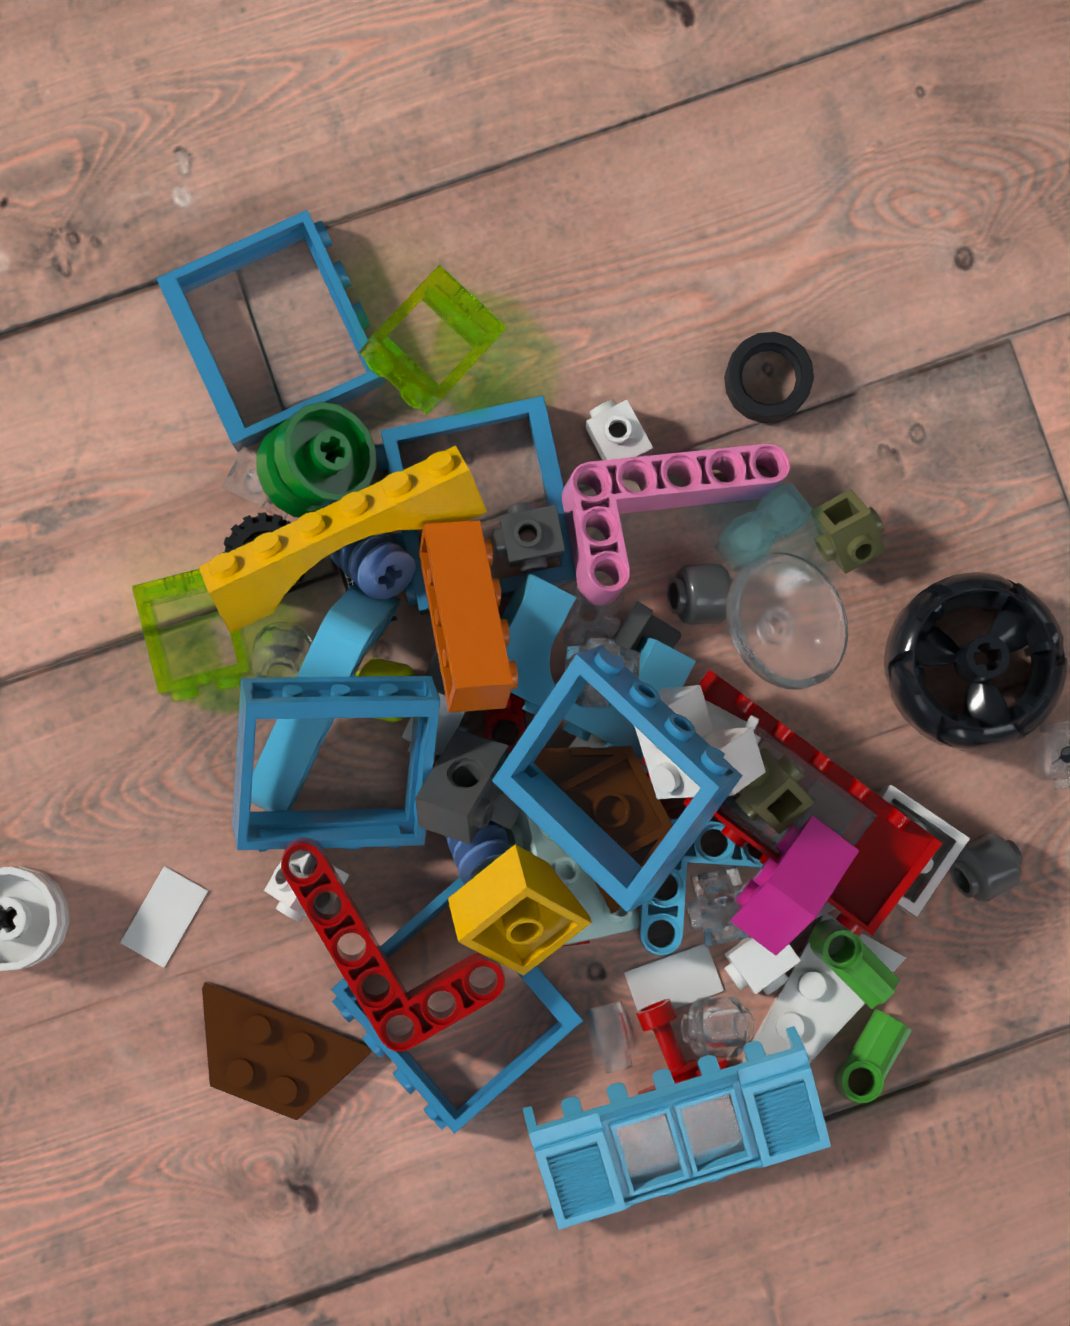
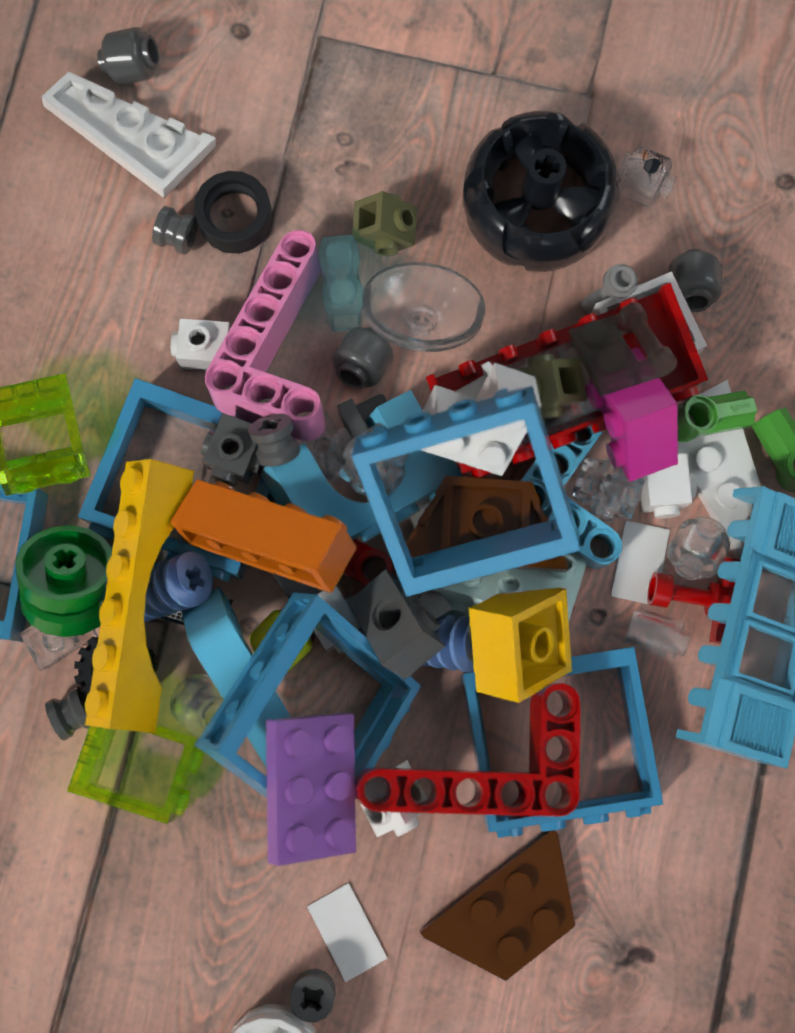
camera: 55 degrees left, 5 degrees down
(100, 922) = (319, 989): none -> dark grey wheel
(200, 540) = (67, 714): none -> dark grey wheel
(268, 802) = (310, 787): none -> medium lavender plate
(558, 569) = (274, 440): none -> dark grey wheel
(714, 334) = (175, 230): none -> dark grey wheel
(783, 236) = (139, 141): none -> white wing
(830, 827) = (610, 359): none -> clear smoke plate
(861, 172) = (128, 55): none -> dark grey head
(919, 792) = (617, 283): none -> light grey hinge

